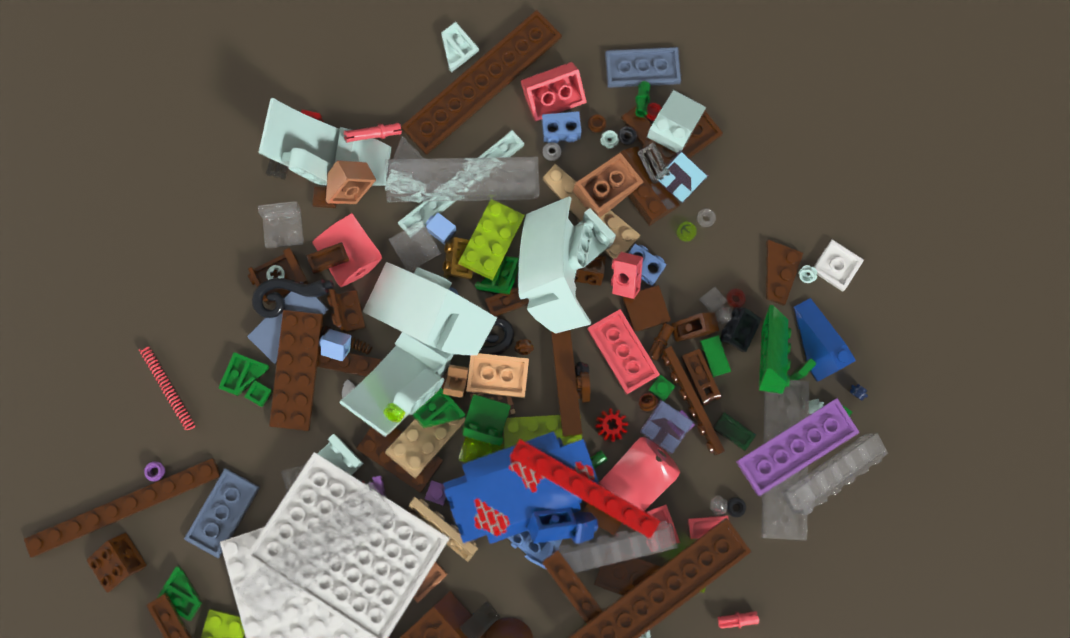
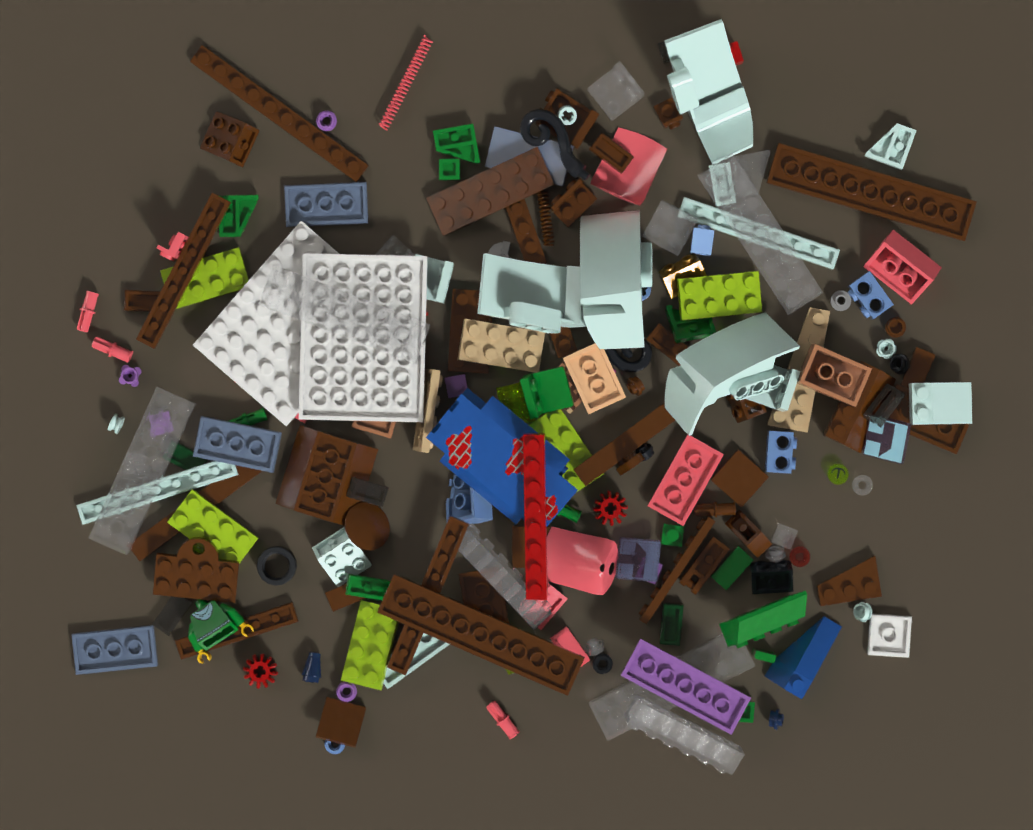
camera: 65 degrees right, 10 degrees up
(335, 344) = (534, 212): light blue brick -> none
(348, 182) = (693, 130): nougat slope -> none
(372, 132) = (762, 127): coral pin -> none
(379, 484) = (435, 327): medium lavender plate -> none
(394, 412) = (502, 308): clear neon green tile -> none
(438, 410) = (529, 344): green wing -> none
(455, 381) = (565, 343): medium nougat bracket -> none
(552, 525) = (487, 506): blue brick -> none
(585, 527) = (502, 533): blue slope -> none
(631, 266) = (758, 442): coral brick -> none
(633, 66) = (980, 338): sand blue tile -> none
(642, 99) = (945, 357): green pin -> none
(648, 402) = (651, 529): reddish brown plate -> none
(653, 111) = (939, 374): red plate -> none
(814, 405) = (738, 684): light aqua plate -> none

